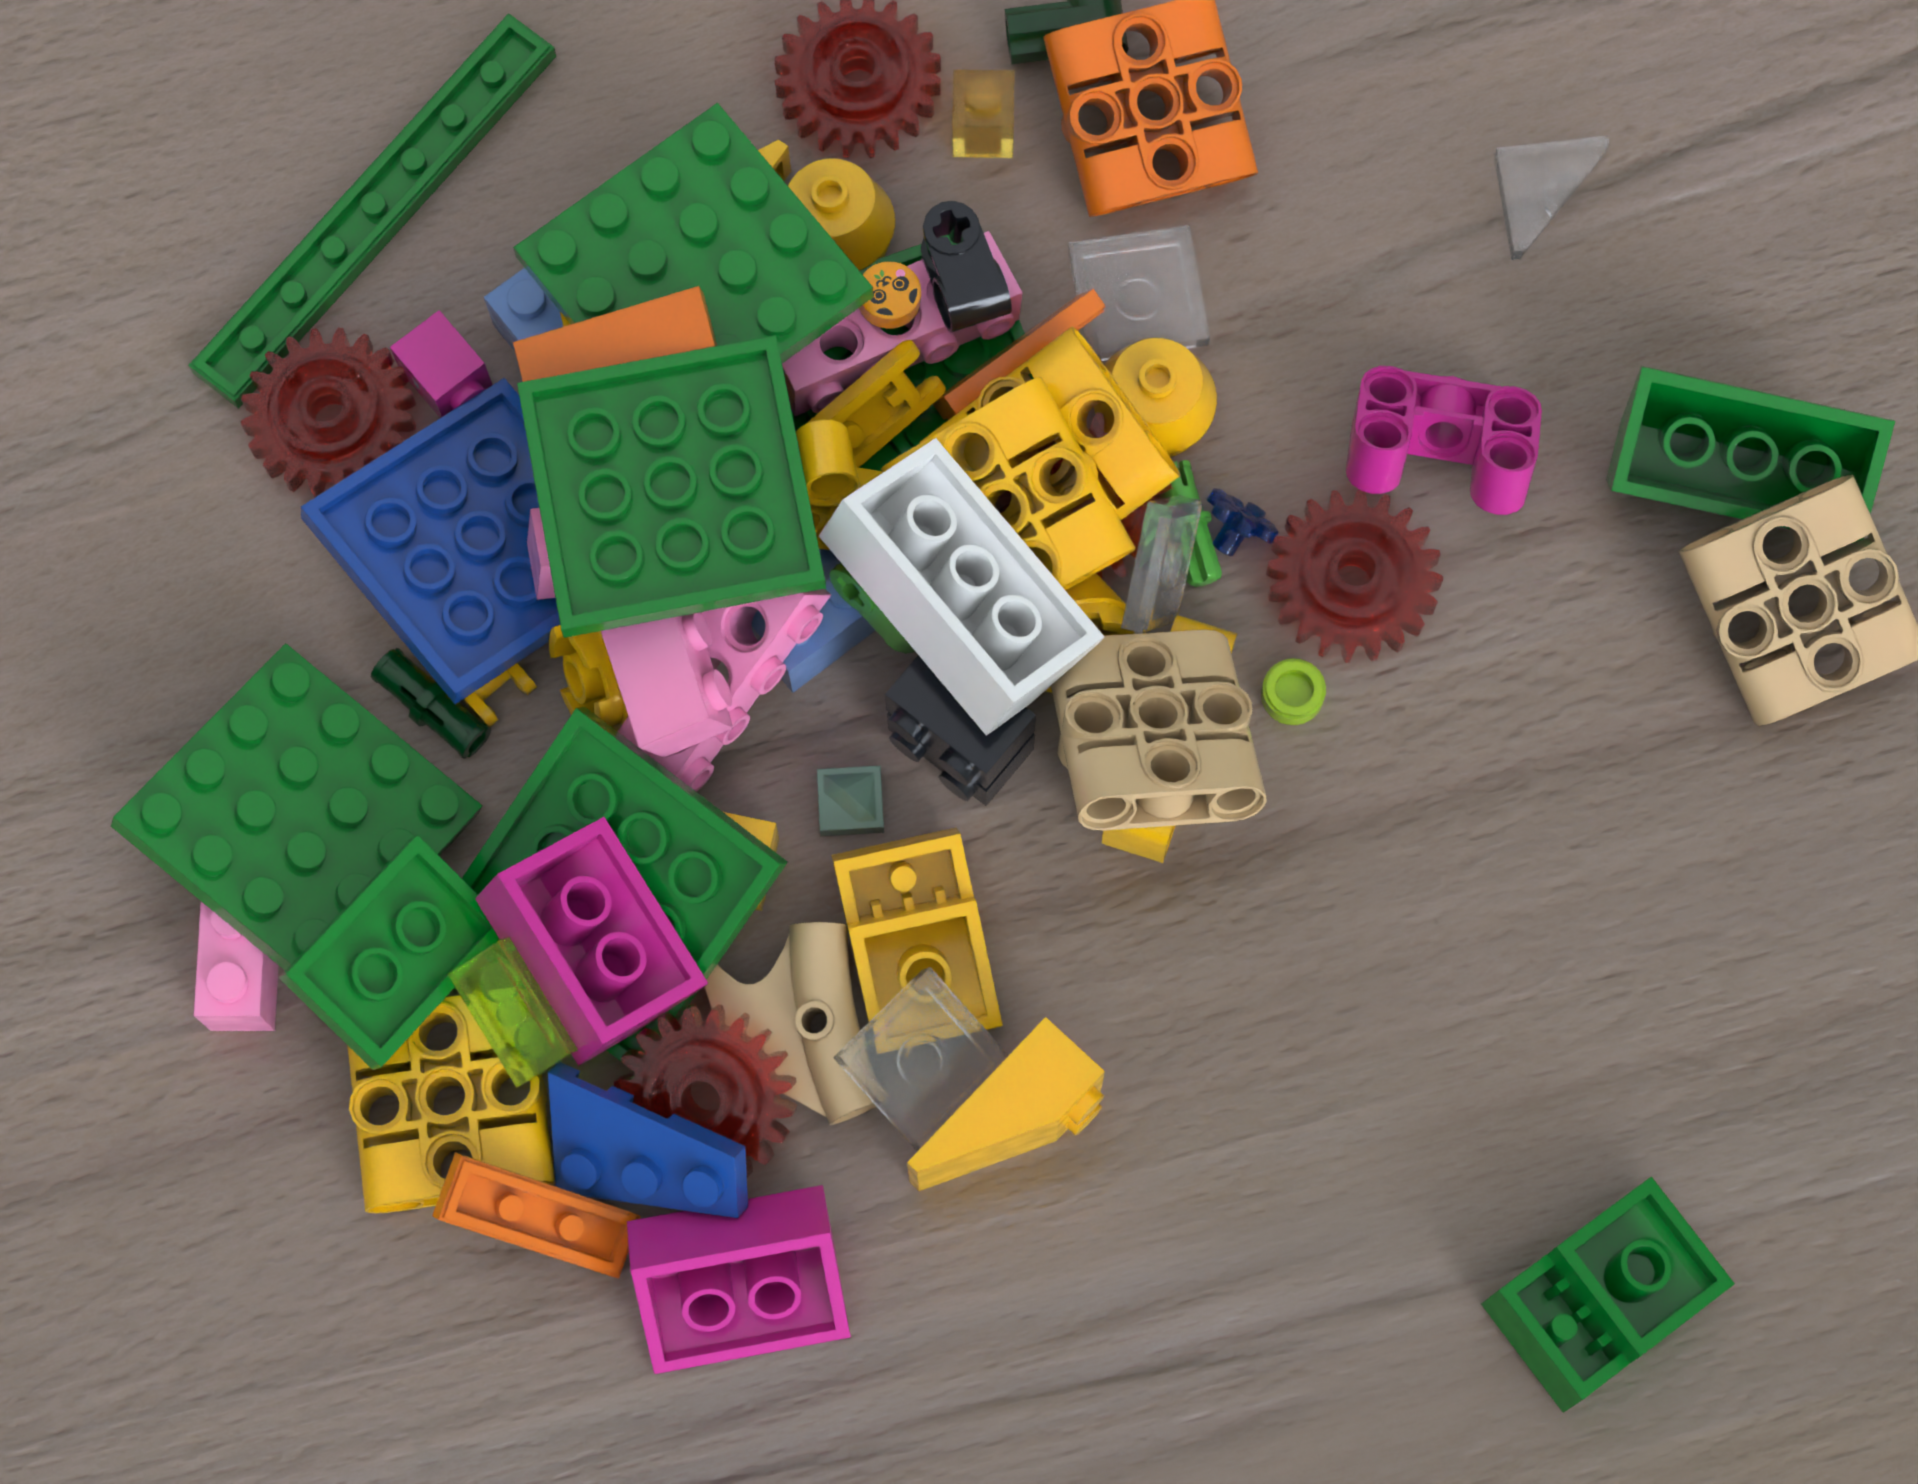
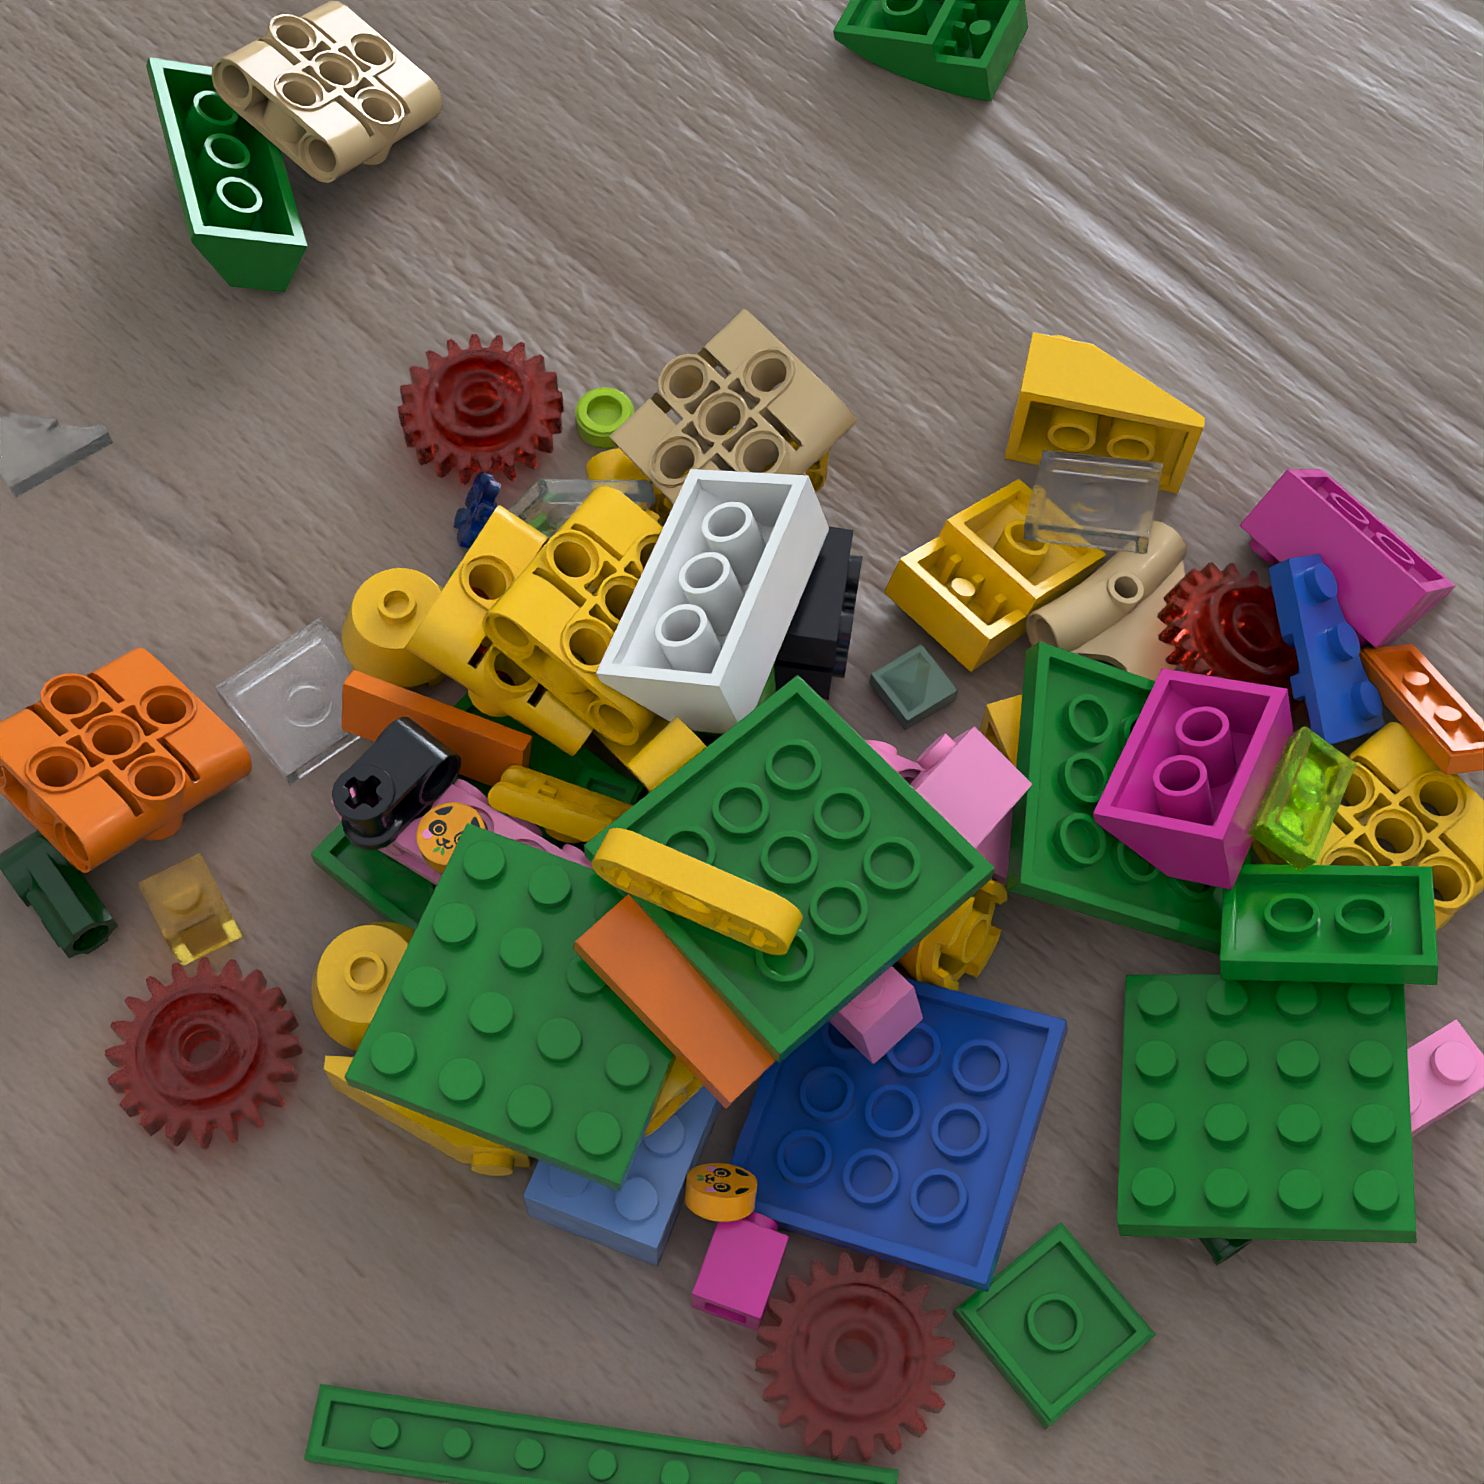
camera: 125 degrees left, 10 degrees down
(259, 580) = (1053, 1325): none -> green tile
(429, 703) = (1063, 1111): dark green pin -> none
(494, 370) = (720, 1192): none -> light orange tile
(671, 379) = (697, 891): none -> yellow beam
(1447, 421) = (313, 425): dark pink beam -> none

